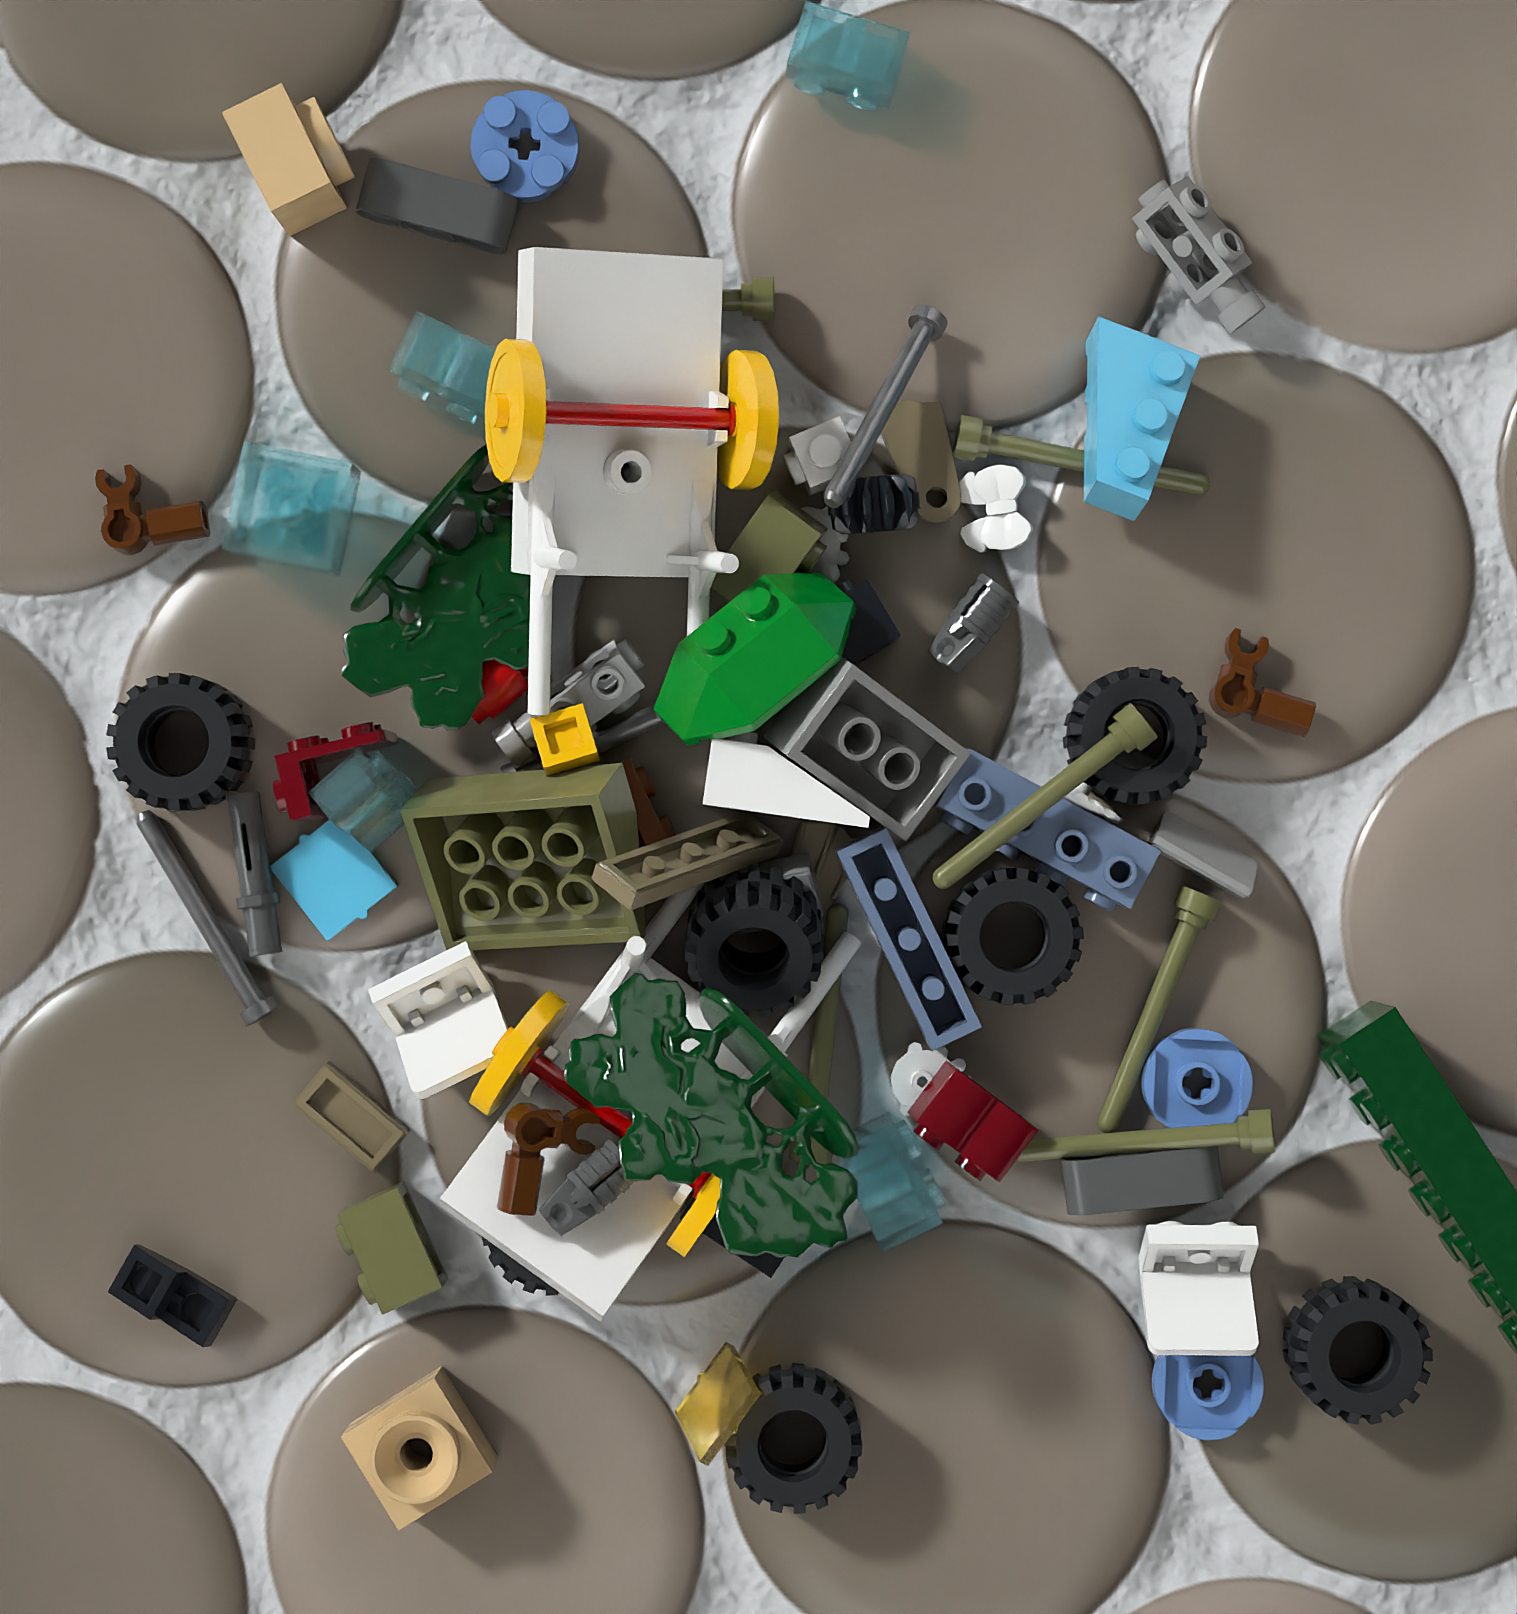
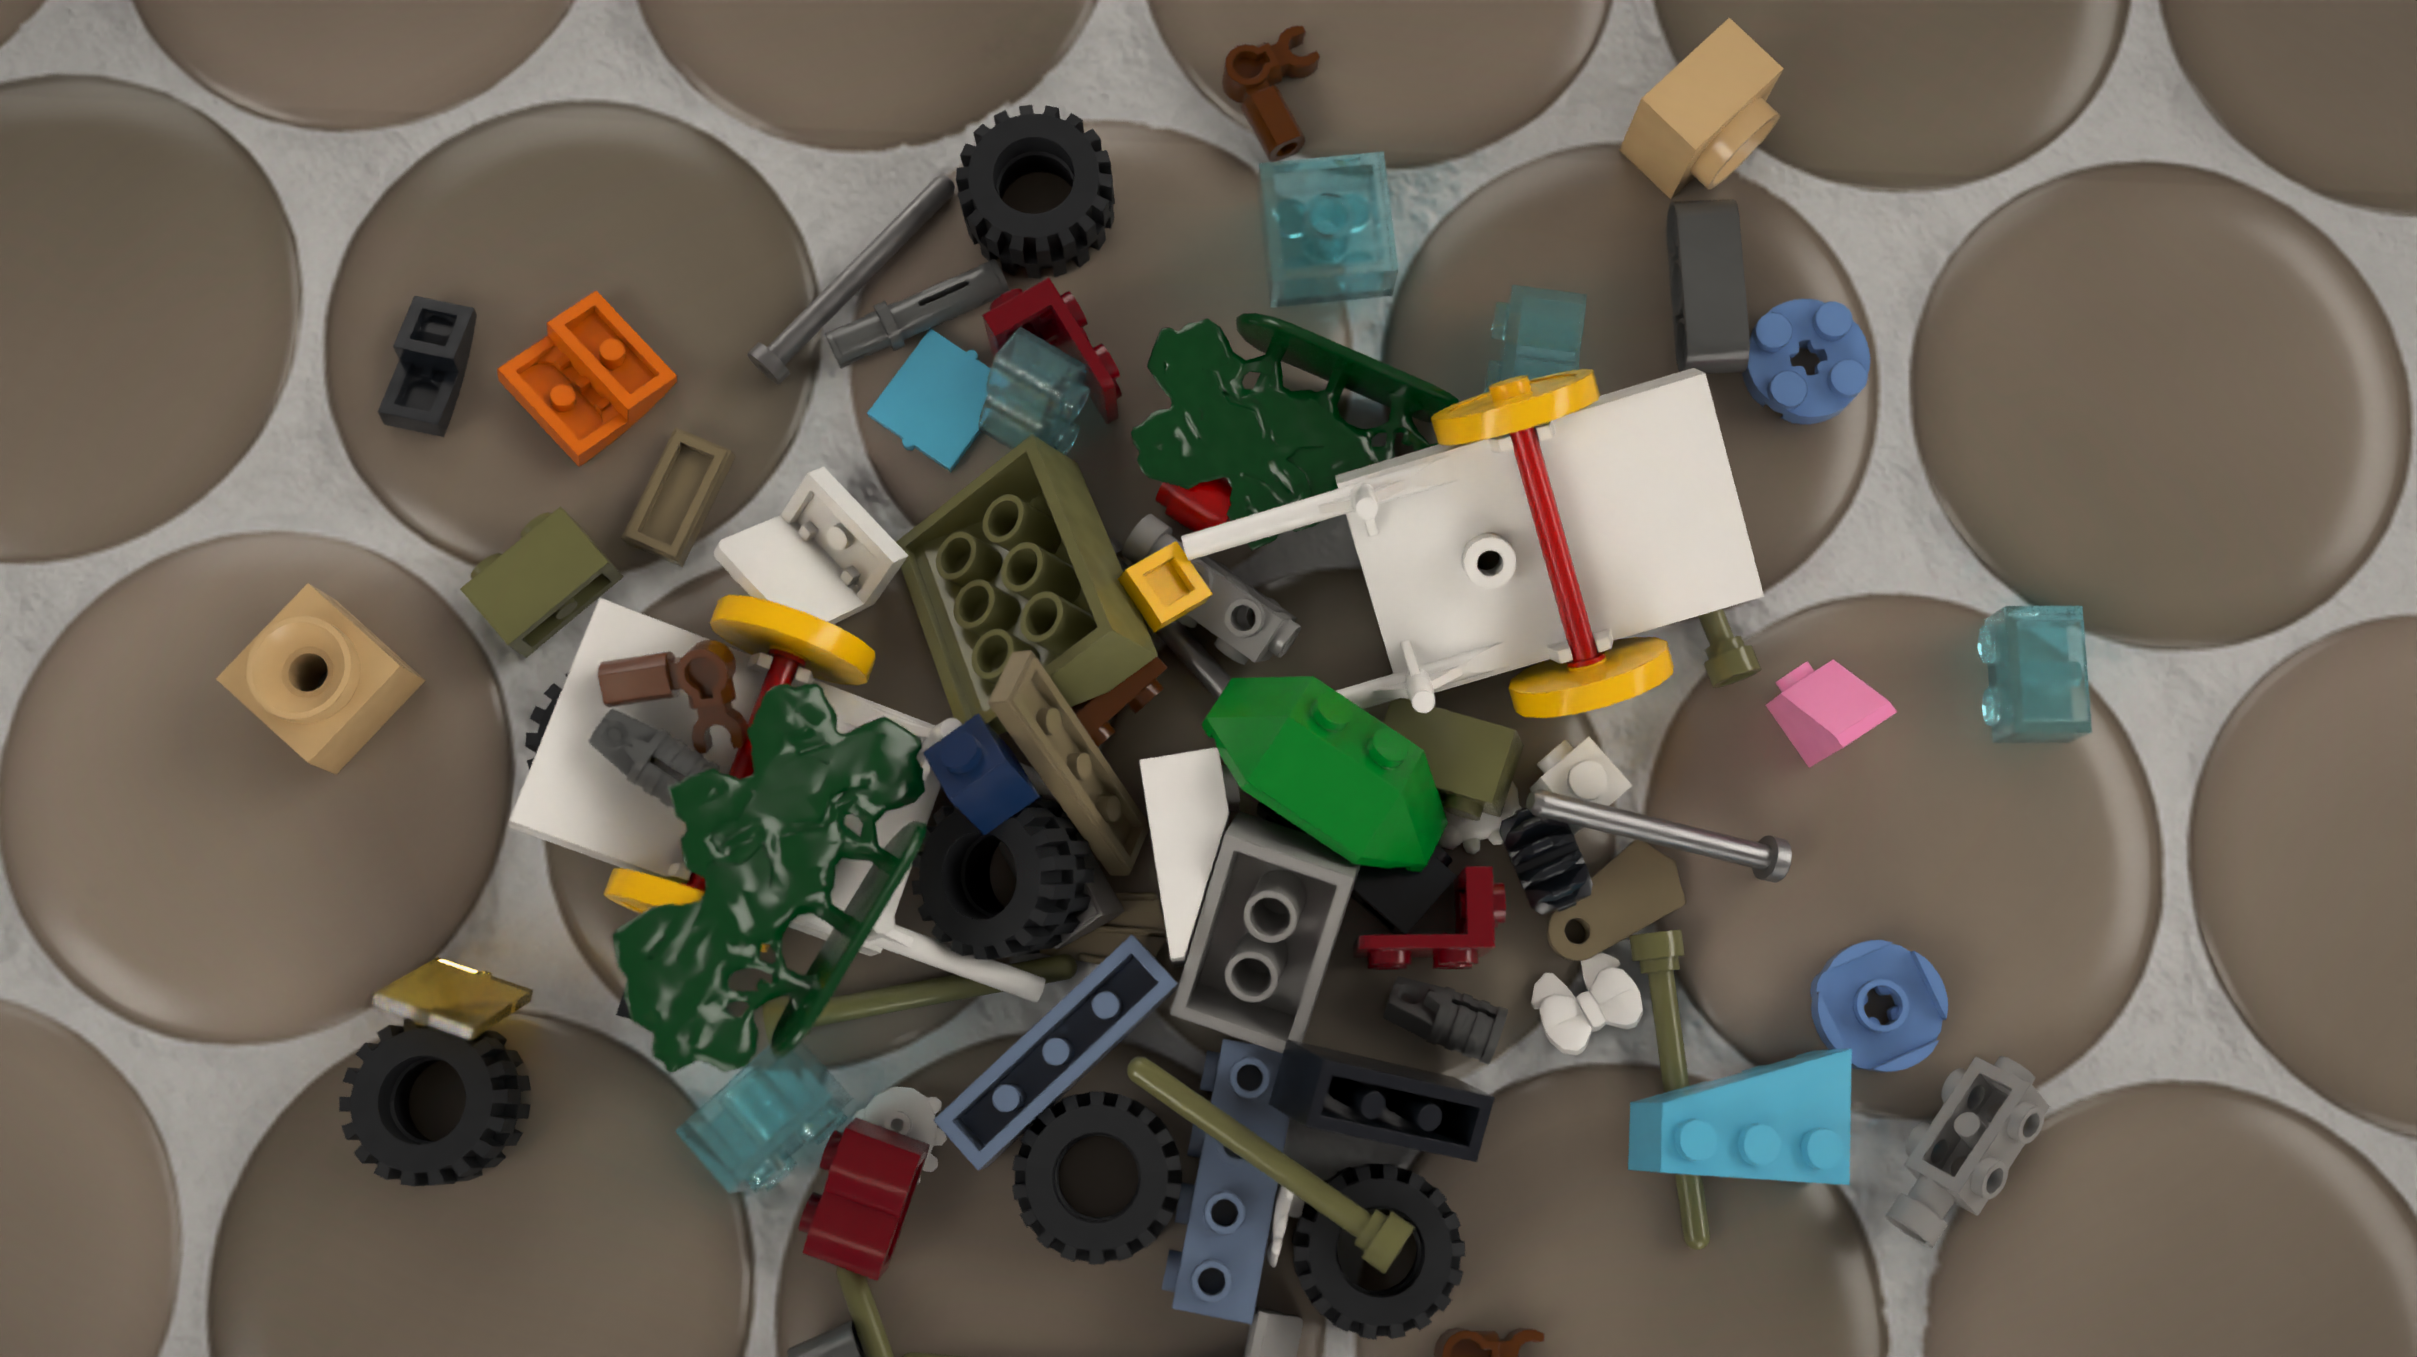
camera: 70 degrees right, 10 degrees down
(224, 1165) = (587, 378): none -> orange slope
(678, 933) = (980, 774): none -> dark blue brick
(824, 237) = (1826, 709): none -> bright pink slope
(899, 572) = (1478, 911): none -> dark red bracket
(1025, 697) = (1380, 1101): none -> black brick
(1089, 256) = (1890, 969): none -> medium blue plate

